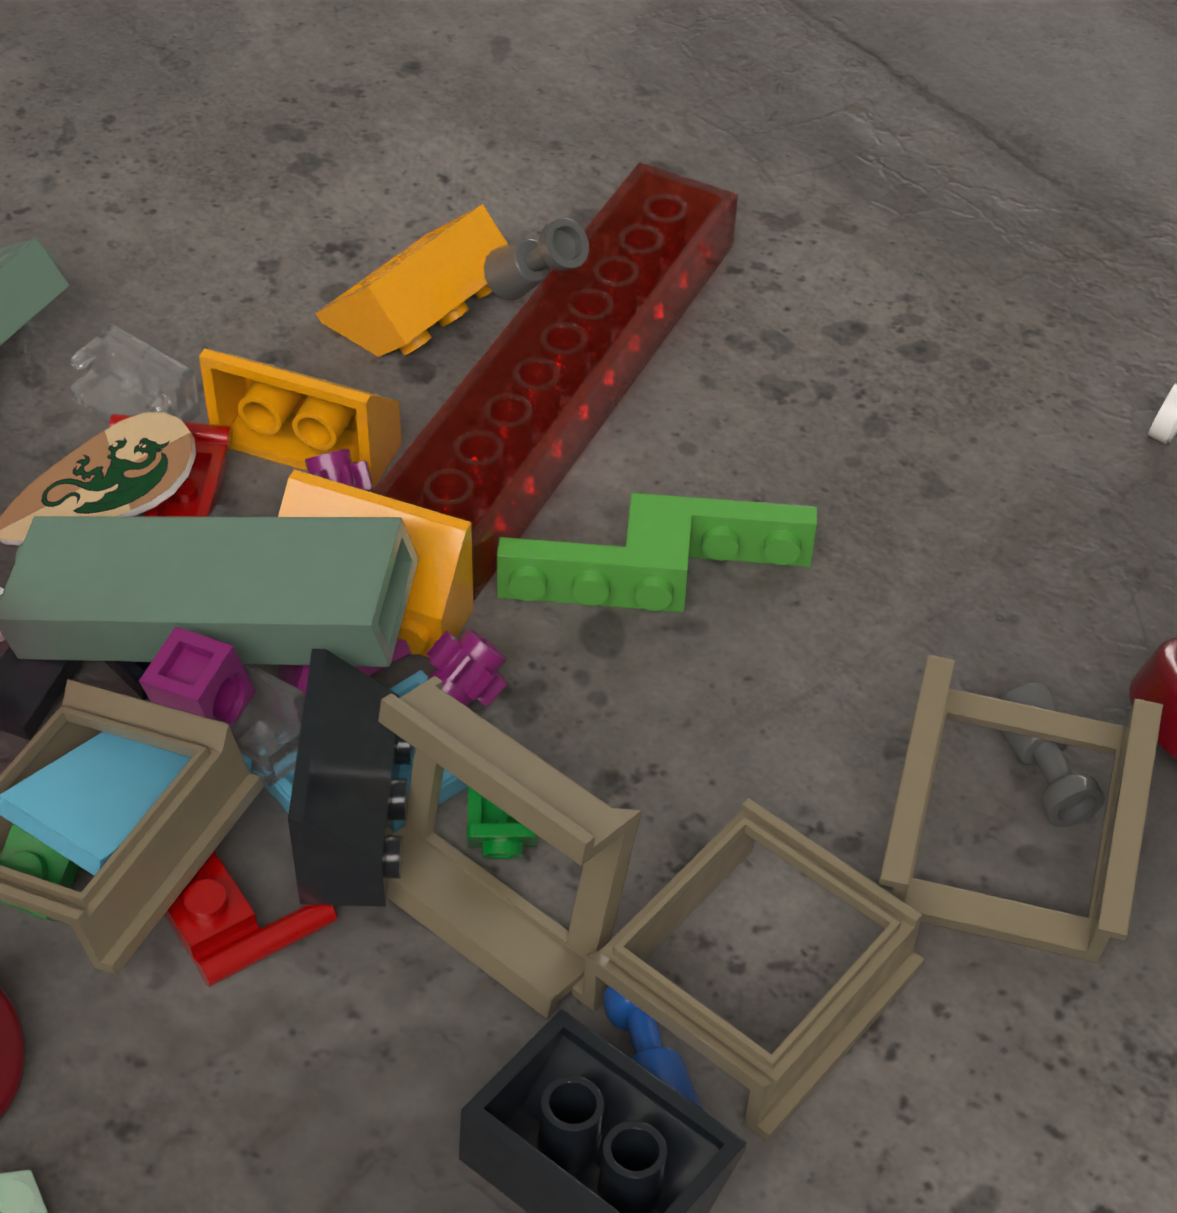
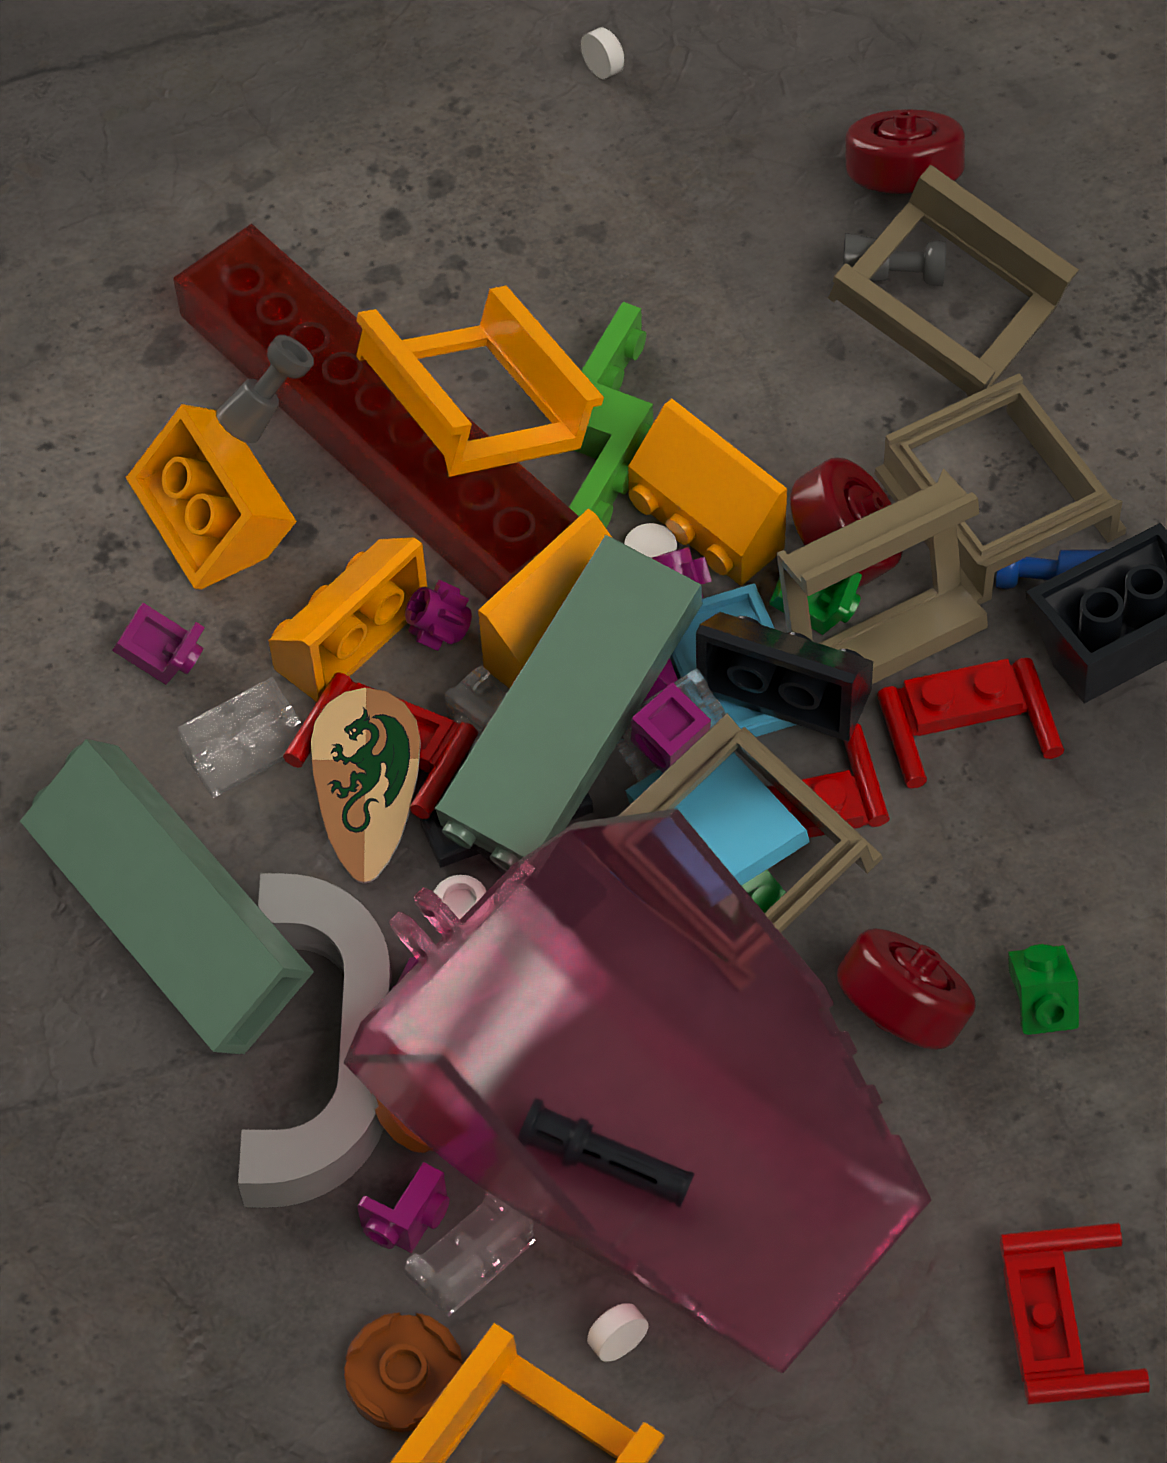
camera: 65 degrees left, 10 degrees up
(225, 298) = (159, 644): none -> magenta bracket
(416, 1018) = (961, 700): none -> red plate
(519, 641) = (651, 539): none -> white tile
(545, 331) = (526, 354): none -> light orange piece
(586, 662) = (708, 494): none -> light orange slope
(635, 772) = (835, 497): none -> dark red wheel

